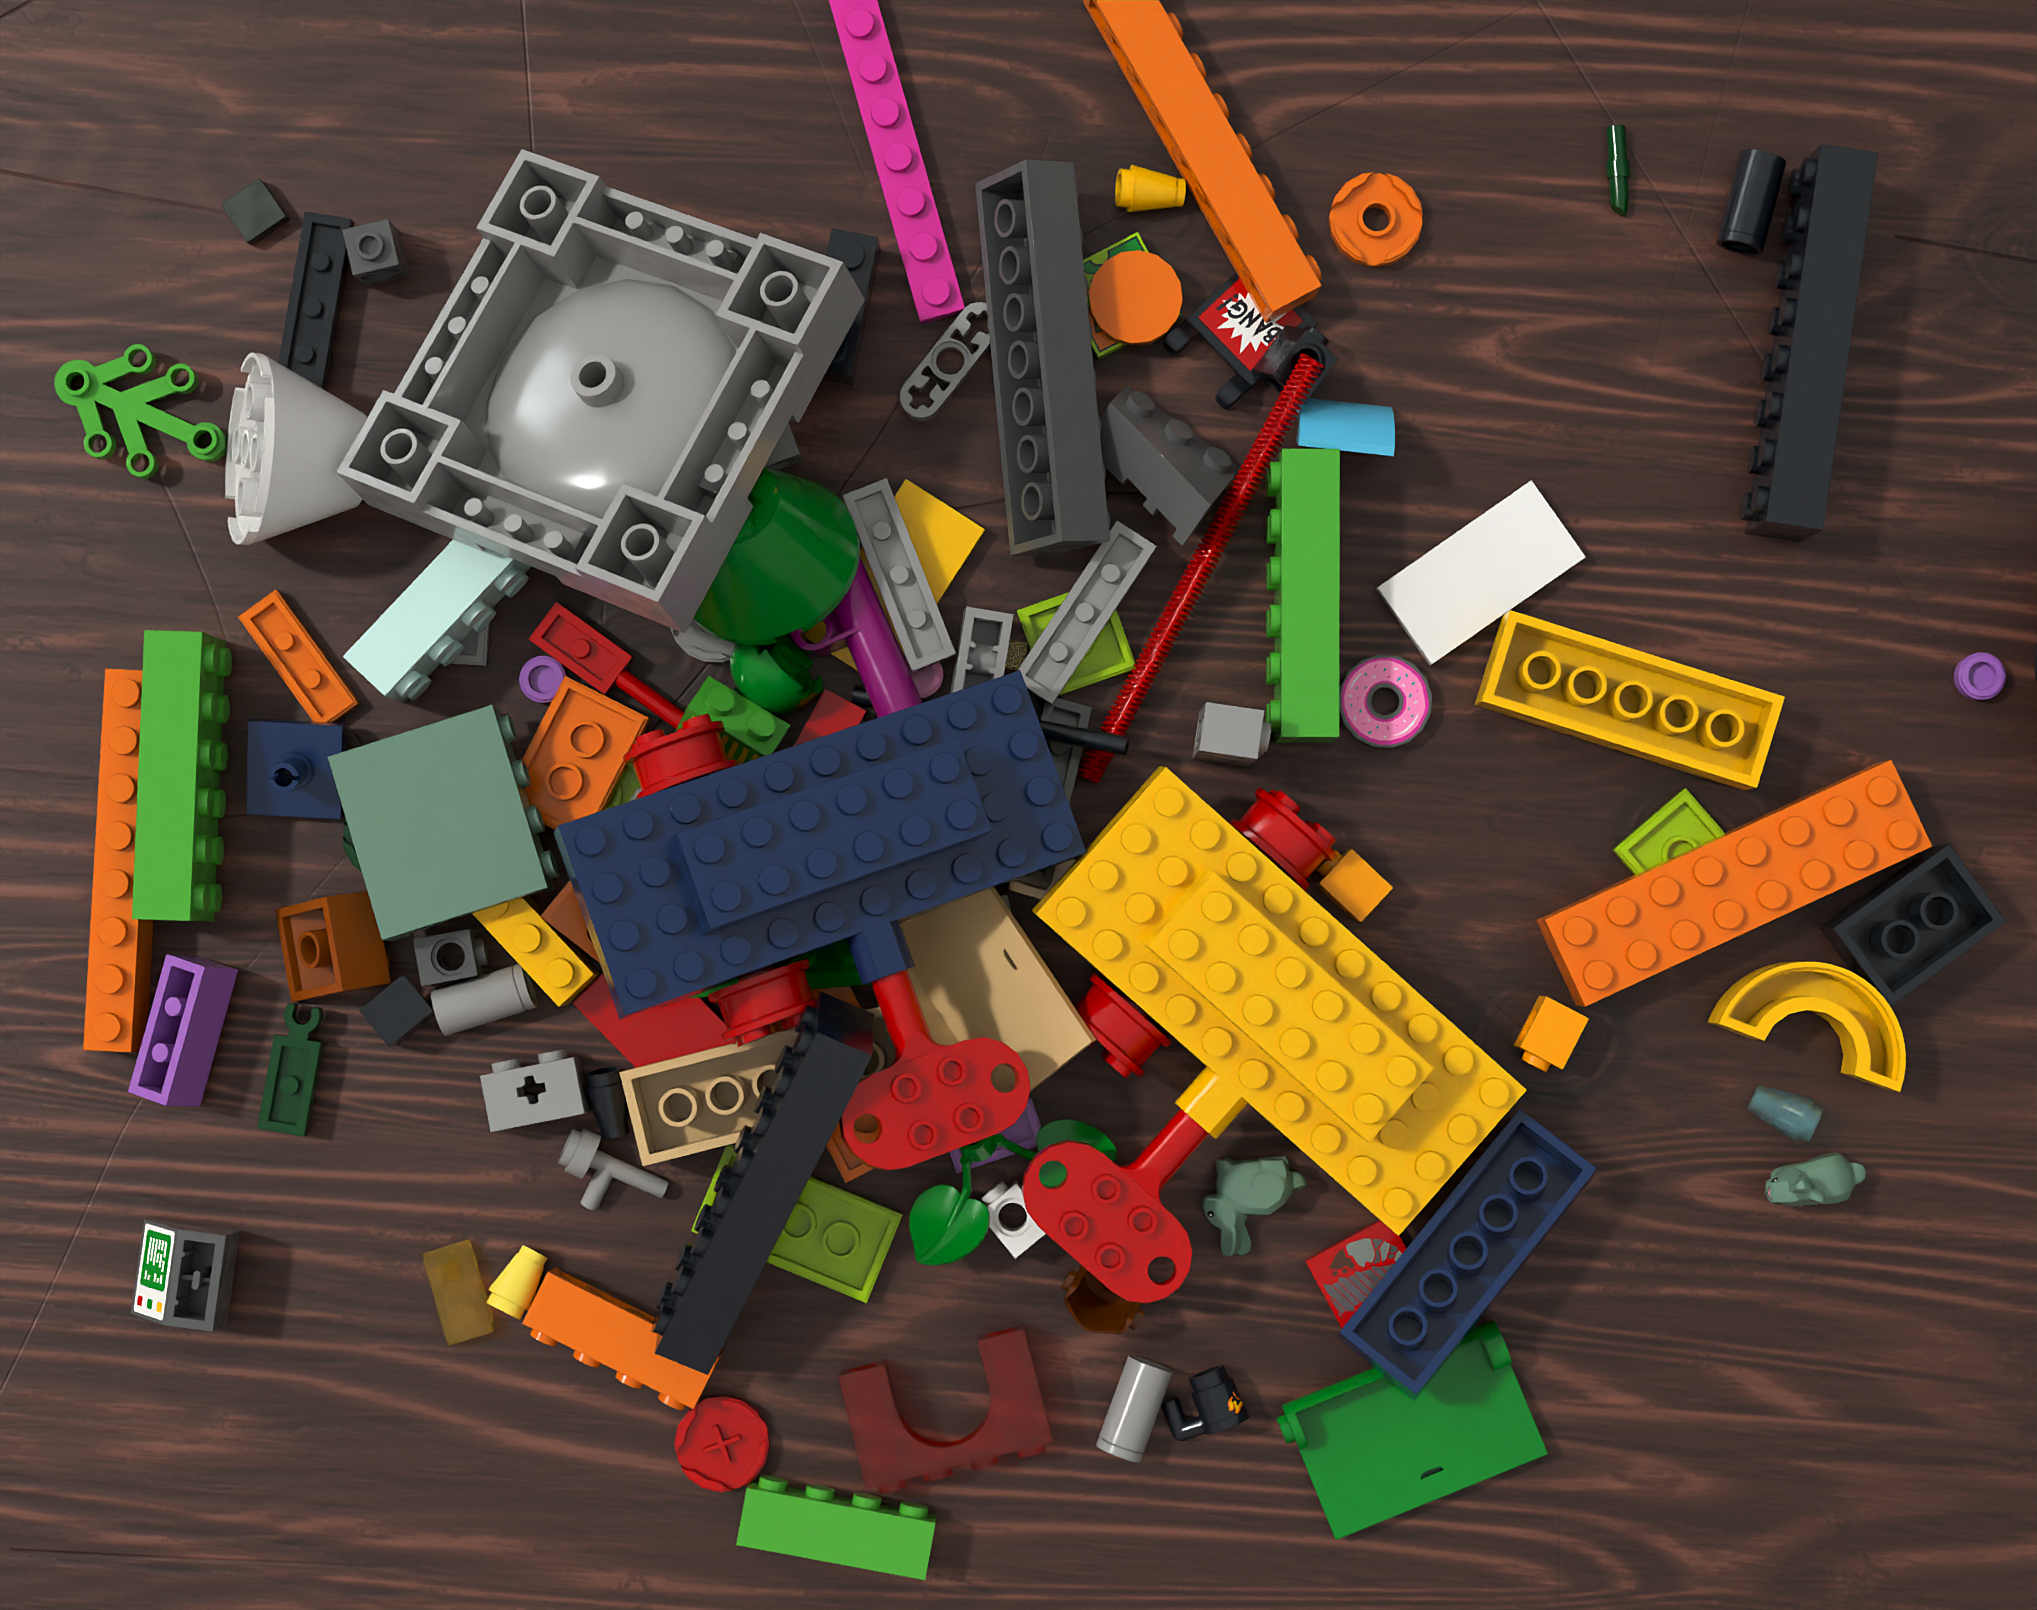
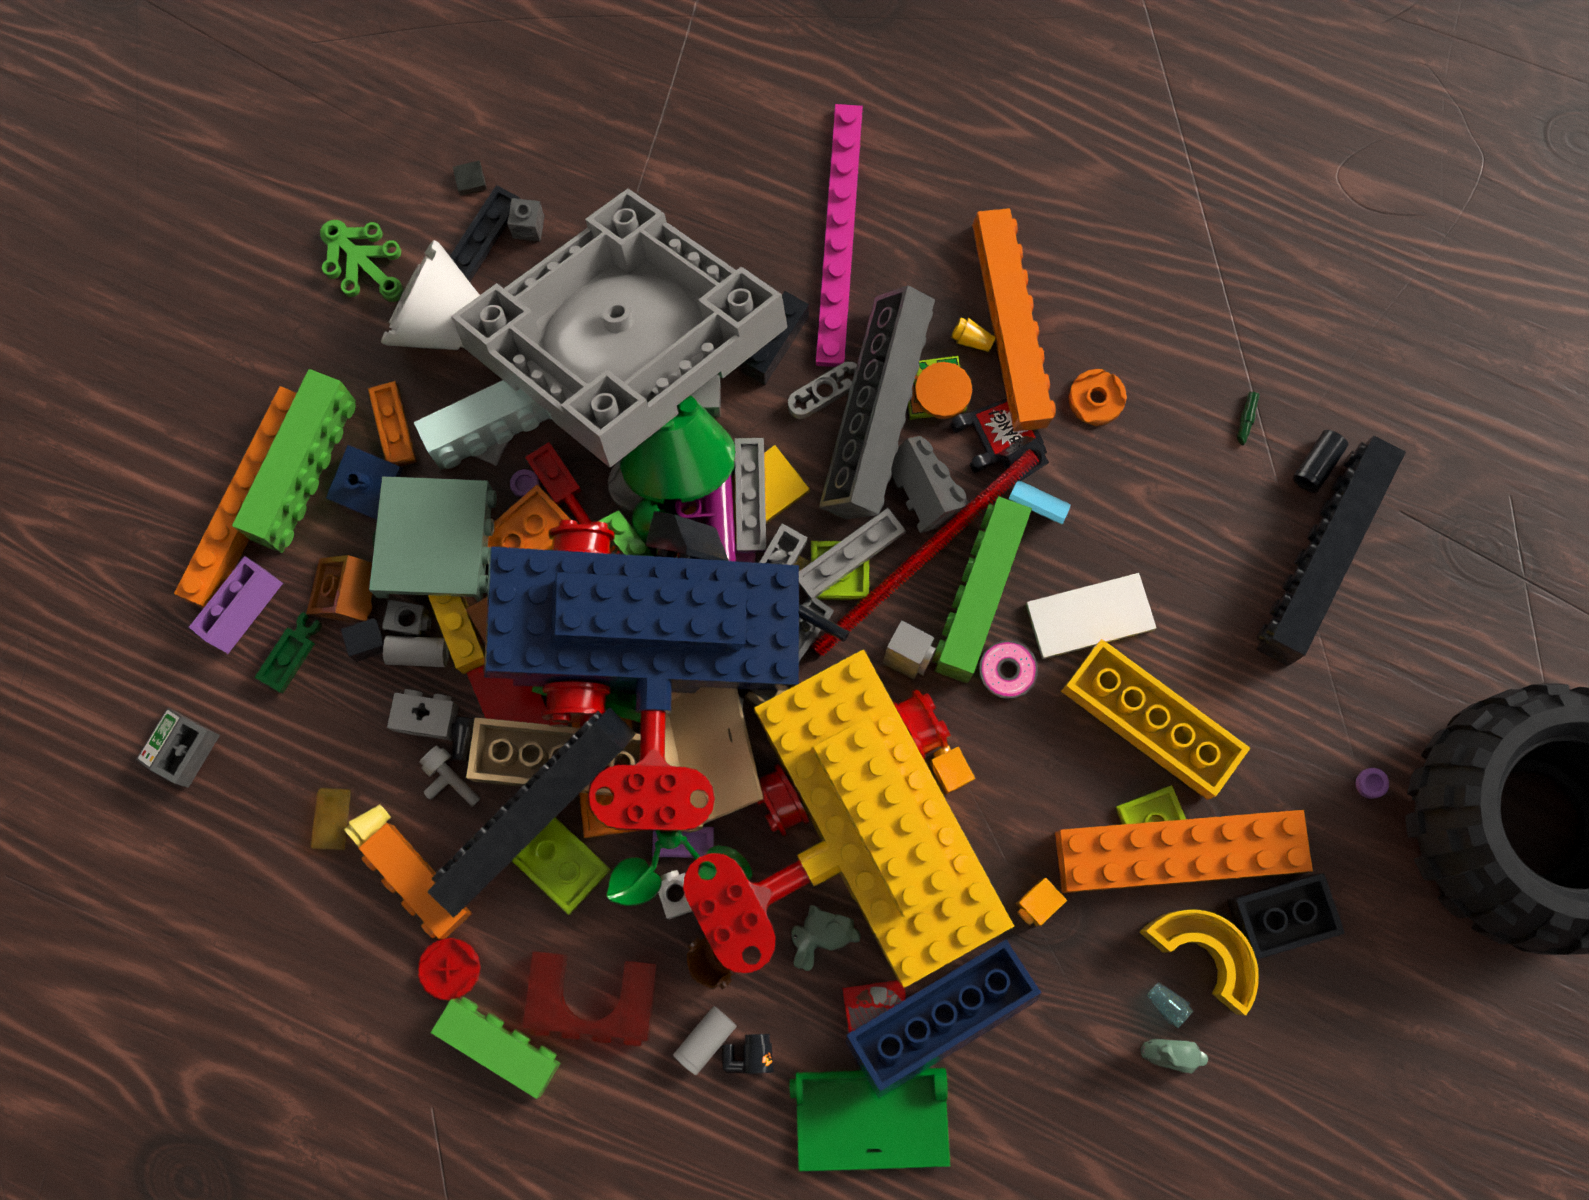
camera: 15 degrees right, 10 degrees down
(833, 689) = (684, 538): none -> black slope

